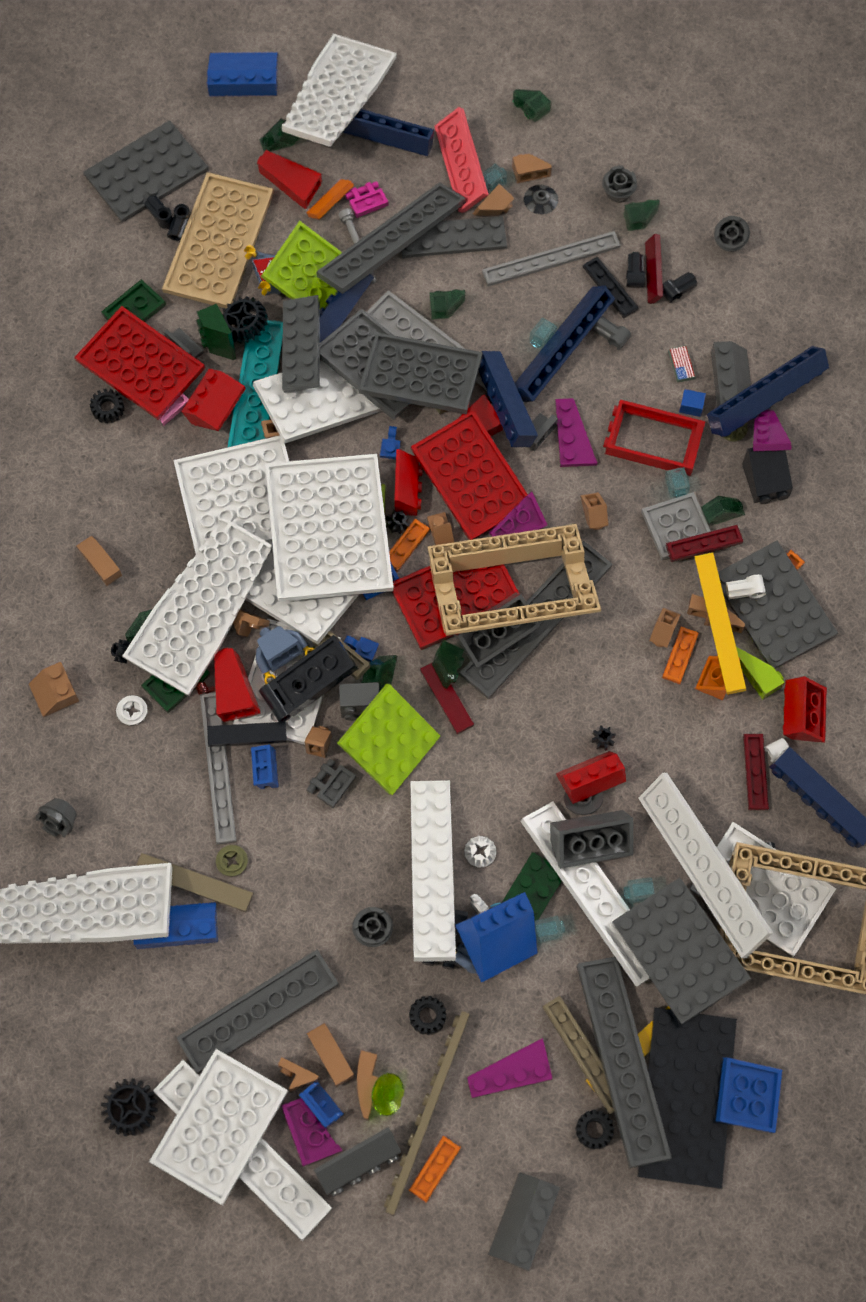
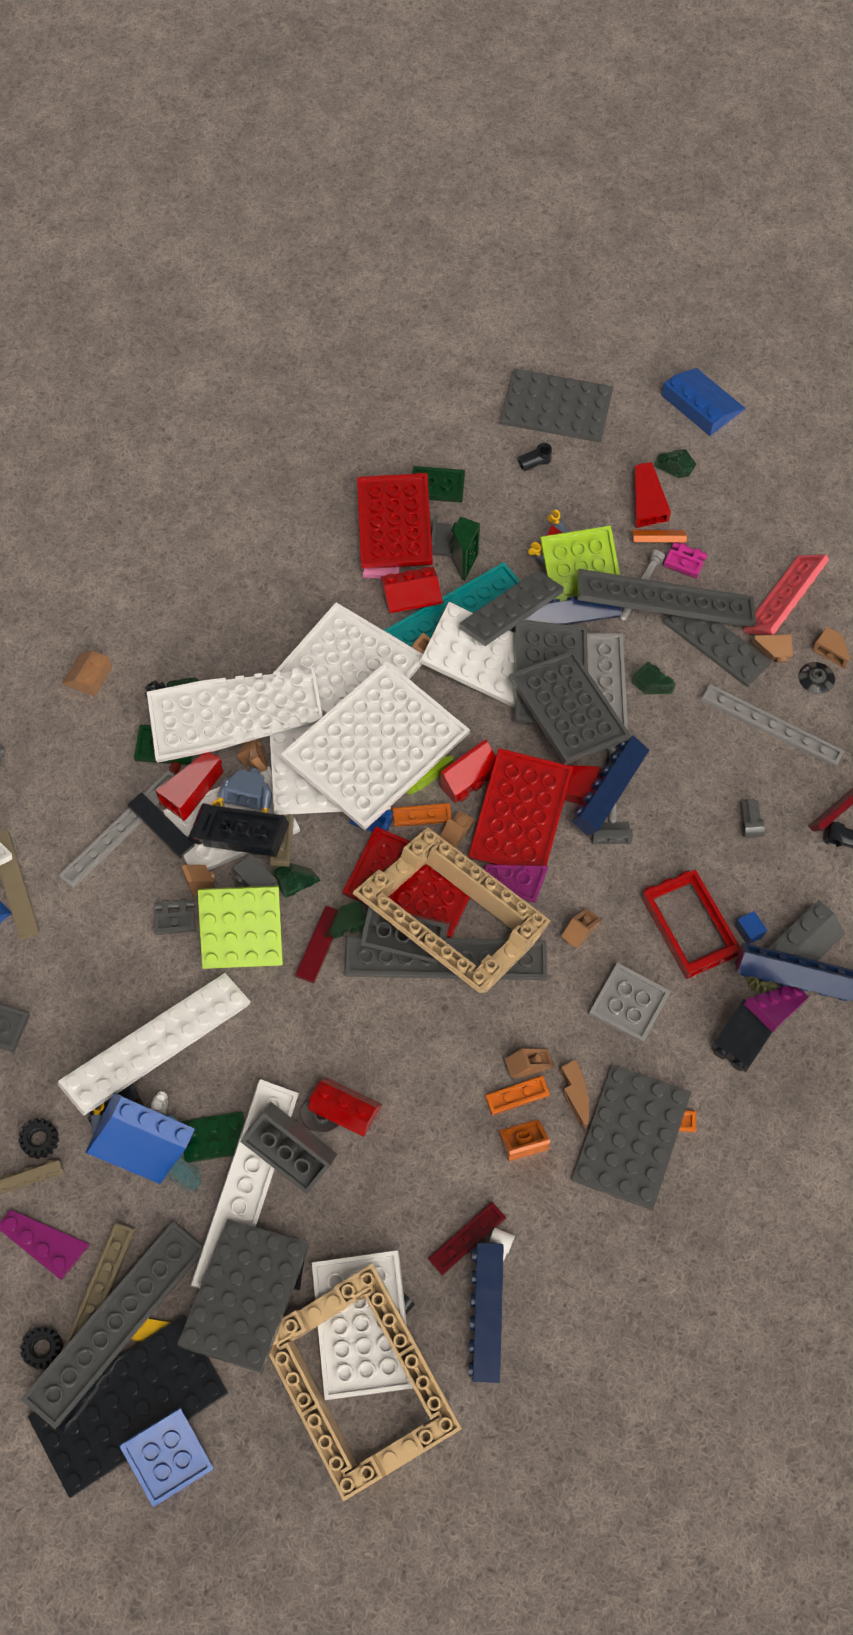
camera: 50 degrees right, 5 degrees down
(99, 560) = (214, 621): medium nougat slope -> none
(109, 415) = (346, 537): black tyre -> none
(125, 704) = (118, 728): white gear -> none
(158, 210) = (531, 437): black piece -> none
(213, 244) = (566, 483): tan plate -> none
(230, 851) = (46, 892): olive gear -> none
(248, 325) = (496, 557): black gear -> none
(264, 766) = (146, 859): blue hinge -> none
(337, 89) = (751, 465): white wing -> none
(364, 647) = (307, 852): blue plate -> none
(372, 927) = (75, 1037): dark grey cone -> none
(389, 445) = (496, 738): blue plate -> none
(391, 132) = (753, 522): dark blue brick -> none
(397, 521) = (428, 792): black gear -> none
(479, 860) = (216, 1078): white gear -> none
(494, 176) = (798, 628): clear light blue brick -> none
(542, 333) = (697, 769): clear light blue brick -> none
(563, 342) = (703, 789): dark blue brick -> none
(572, 437) = (628, 865): magenta wing -> none
(600, 741) = (388, 1095): black gear -> none
(603, 277) = (792, 787): black tile -> none
(635, 274) = (823, 795): black piece -> none
(638, 890) = (277, 1221): clear light blue brick -> none
(677, 482) = (667, 972): clear light blue brick -> none
(681, 364) = (779, 893): tile -> none
(704, 543) = (632, 1035): dark red tile -> none
(705, 866) = (333, 1257): white plate -> none
(720, 624) = (566, 1101): yellow tile -> none
(722, 509) = (678, 1026): clear green slope -> none
(750, 587) = (626, 1102): white piece -> none
(760, 674) = (557, 1175): lime slope -> none
(804, 710) = (558, 1236): red slope -> none

